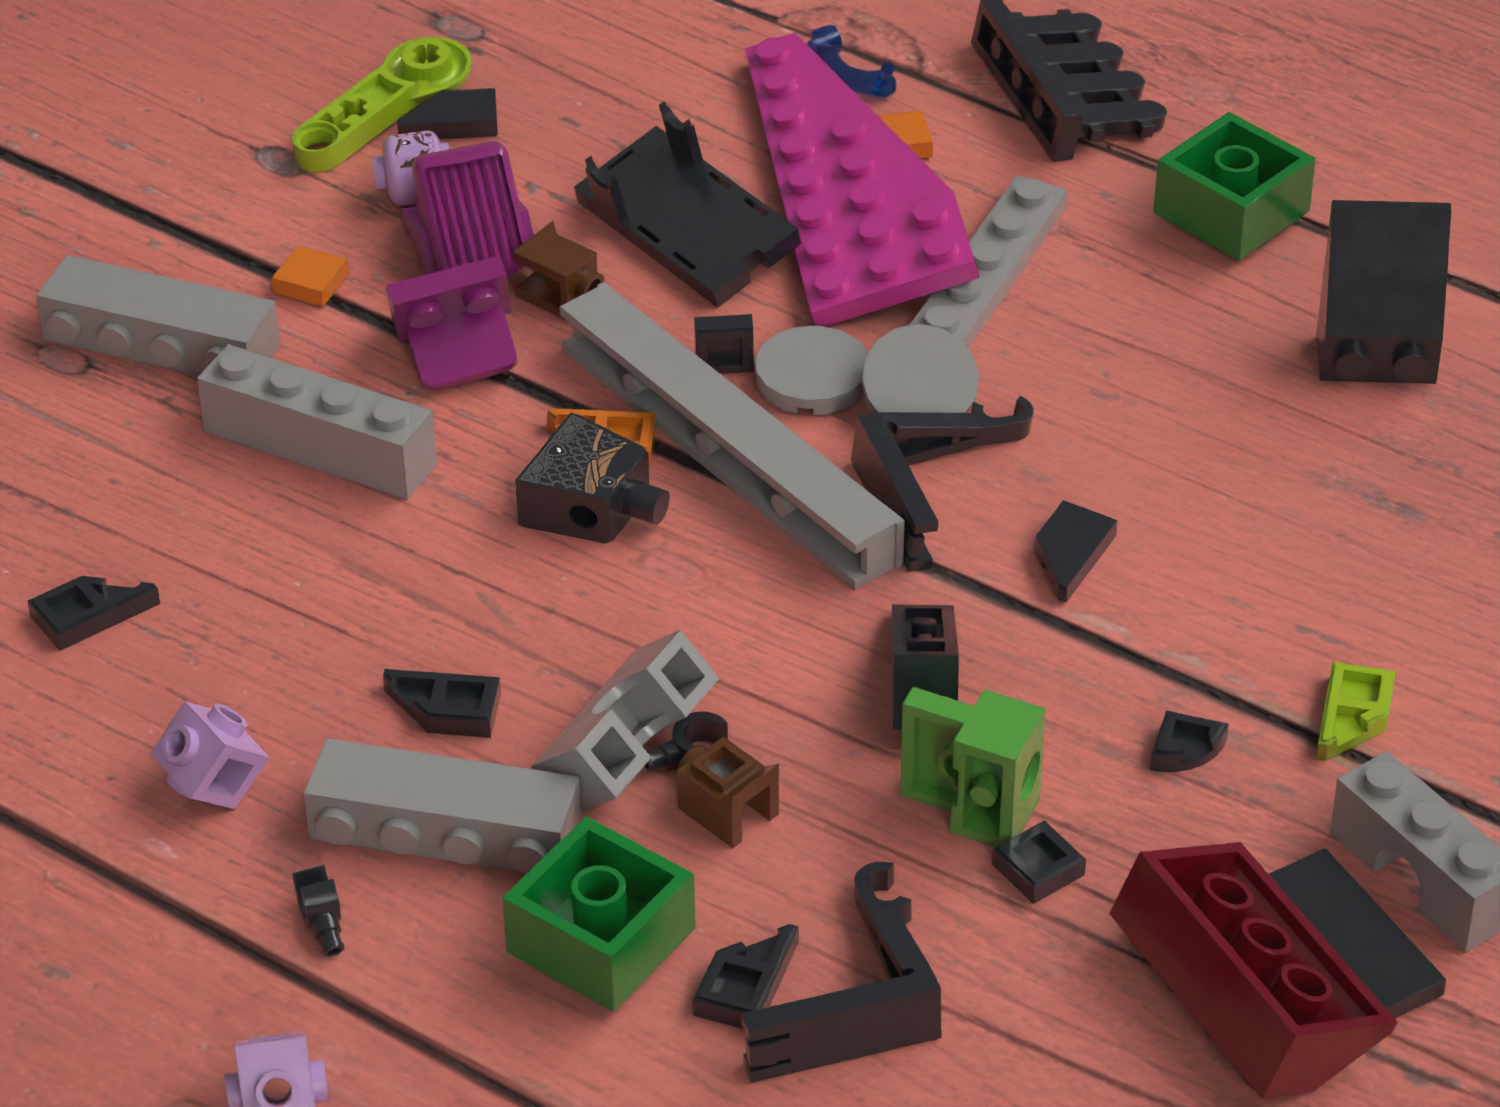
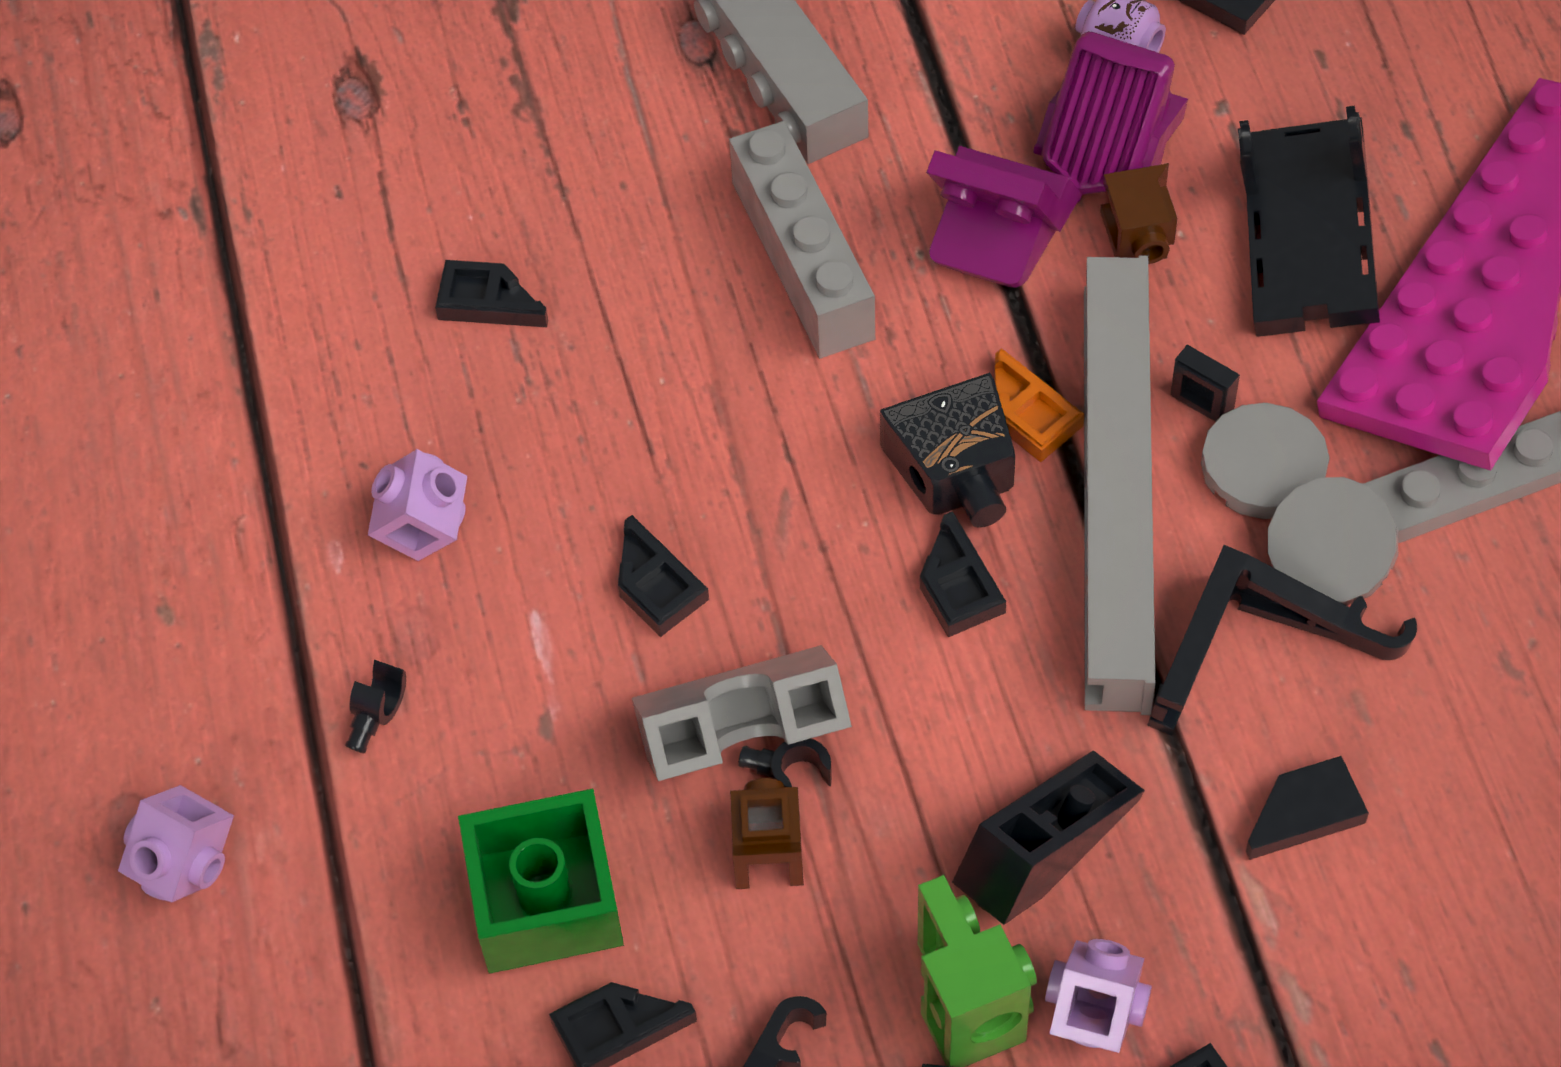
camera: 45 degrees right, 15 degrees up
(310, 276) = (948, 84): orange tile -> none
(439, 805) = (539, 684): light grey brick -> none
(678, 565) = (958, 581): none -> black tile
(1077, 720) = (1097, 994): none -> lavender brick

